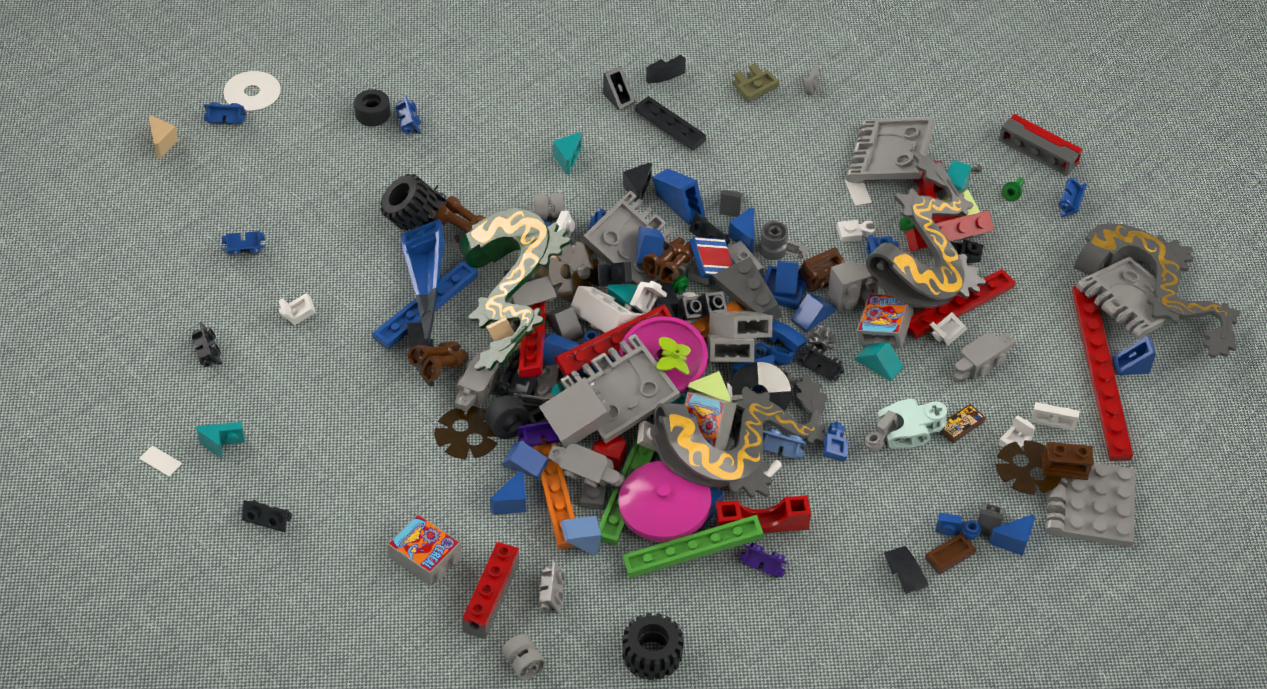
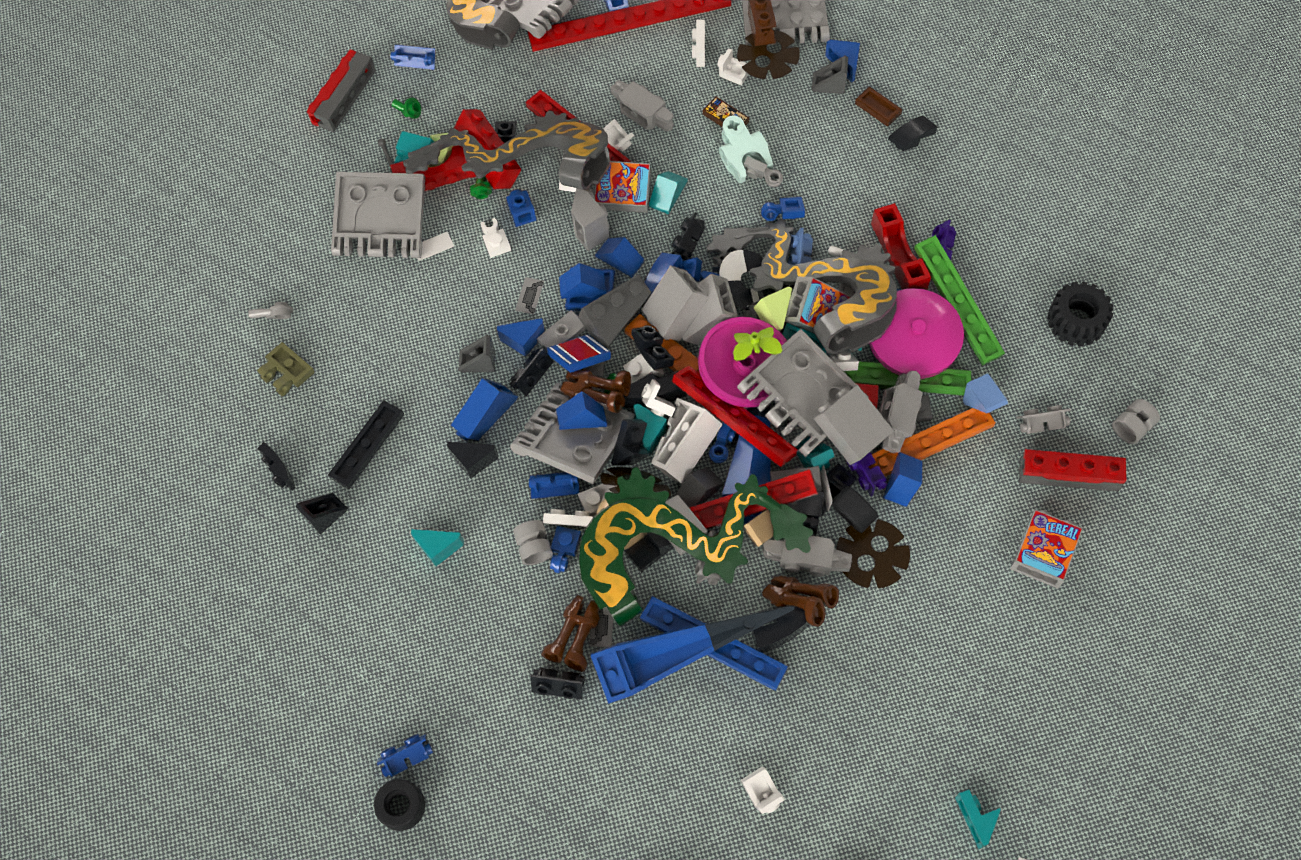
camera: 95 degrees left, 15 degrees up
(265, 515) = (1061, 739): black hinge -> none
(408, 202) = (578, 718): black tyre -> none
(510, 497) = (949, 480): blue slope -> none
(774, 240) = (535, 301): dark grey wheel -> none
(817, 269) = (565, 249): reddish brown hinge -> none
(822, 338) = (659, 239): dark grey gear -> none
(952, 524) = (852, 106): blue plate -> none

